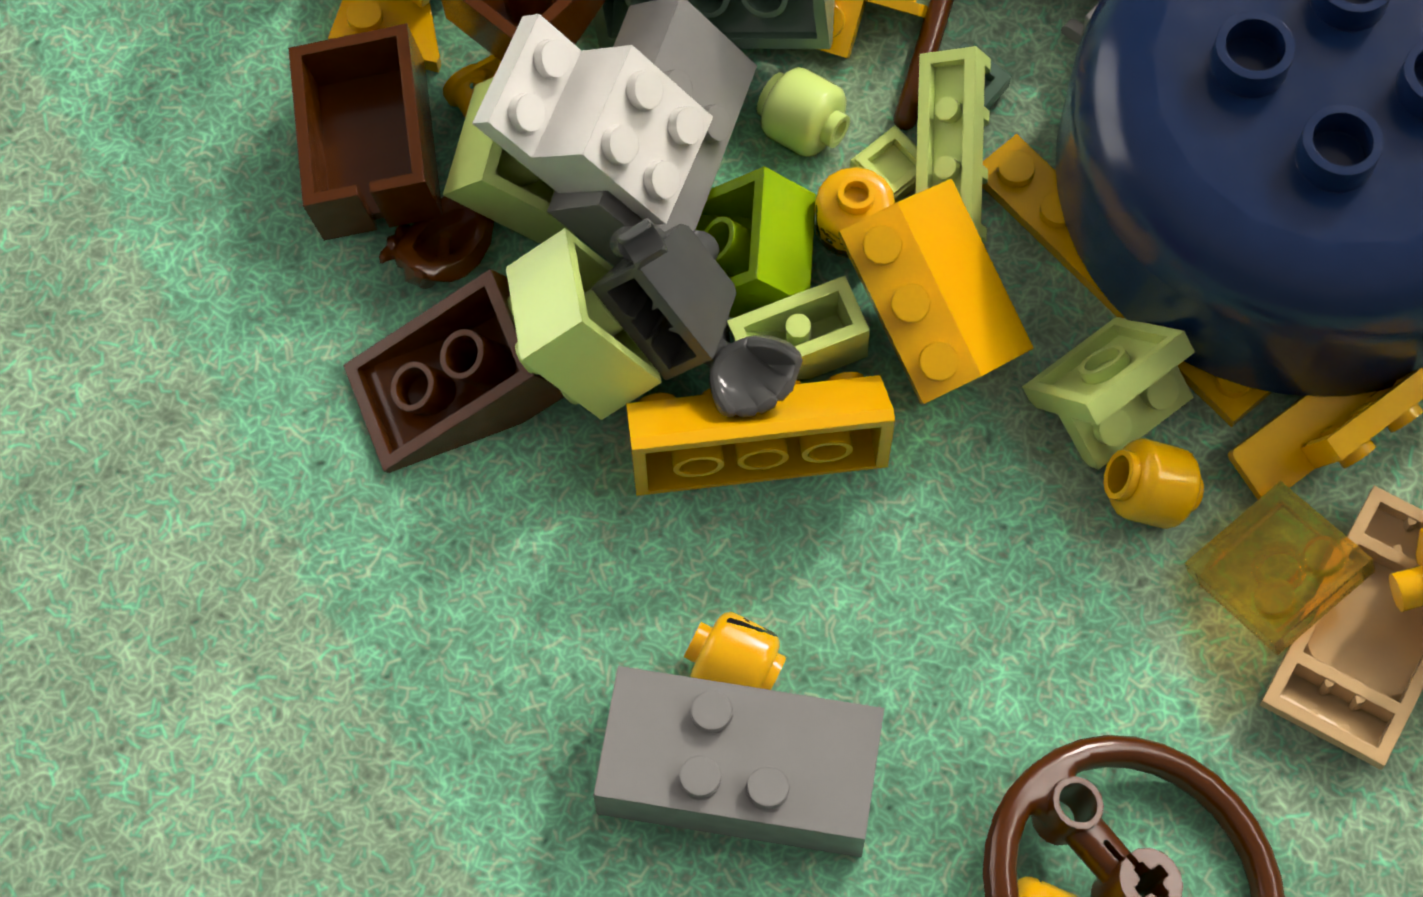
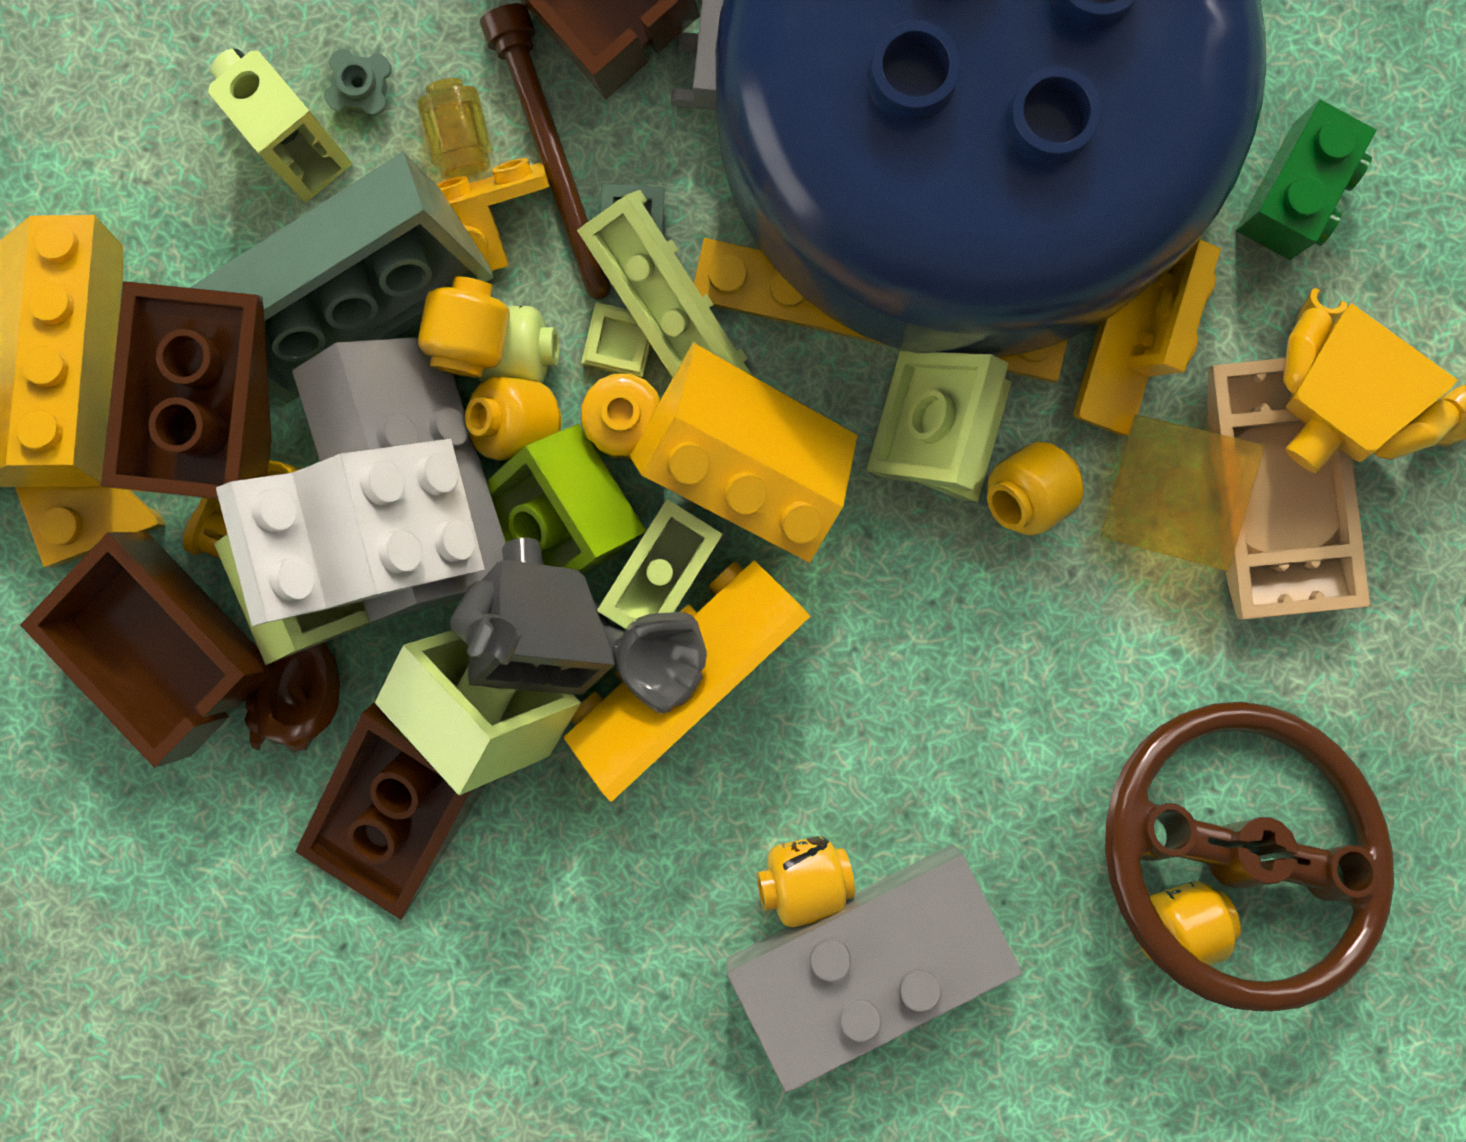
camera: 35 degrees left, 20 degrees up
(769, 142) = (509, 415): none -> yellow head
(780, 61) = (463, 327): none -> yellow head

